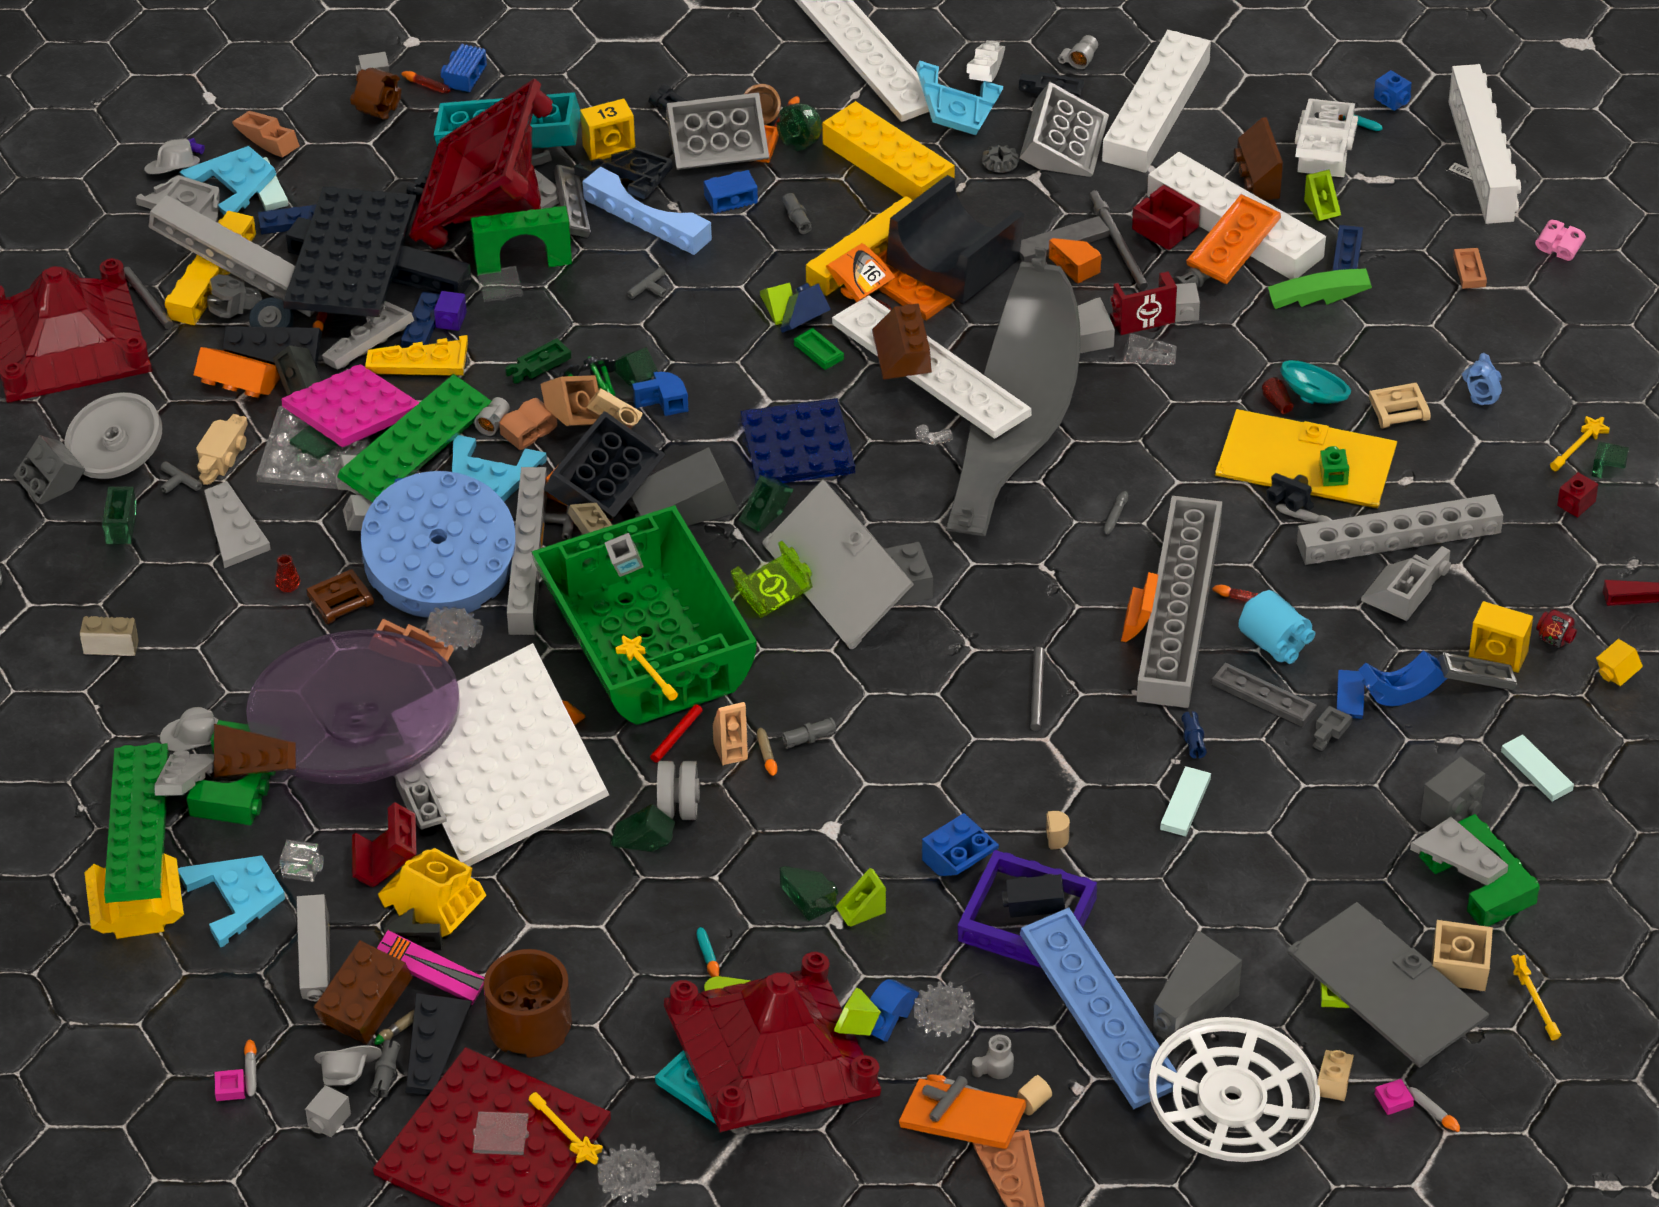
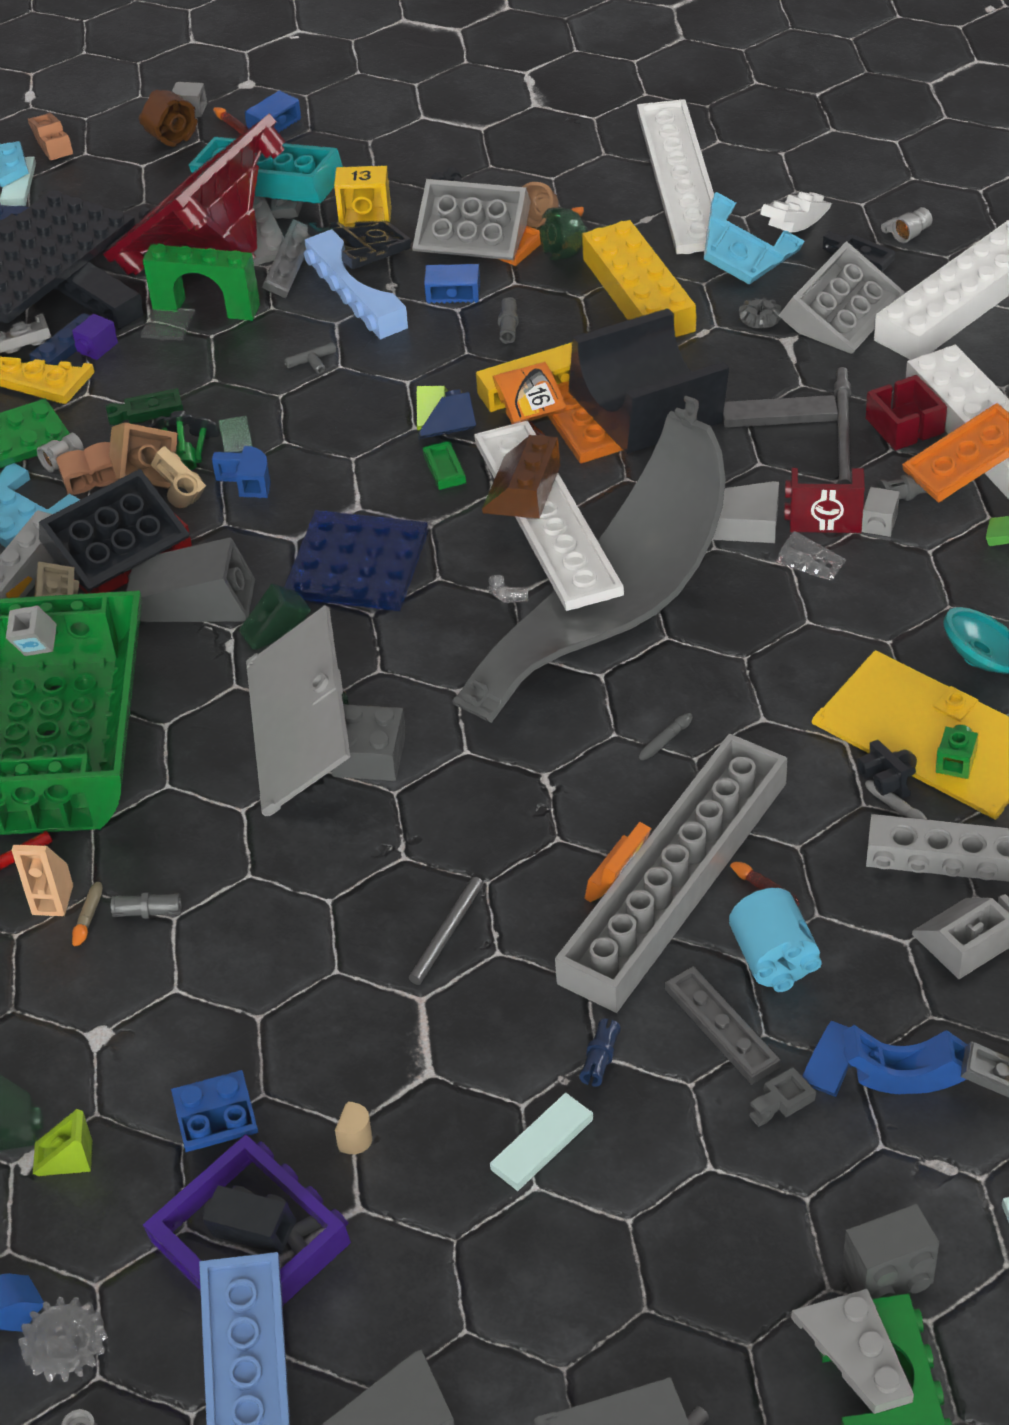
camera: 25 degrees right, 0 degrees up
(774, 582) = (221, 713): clear neon green panel -> none
(1076, 258) = (781, 434): orange slope -> none
(1277, 394) = (935, 645): clear red cone -> none

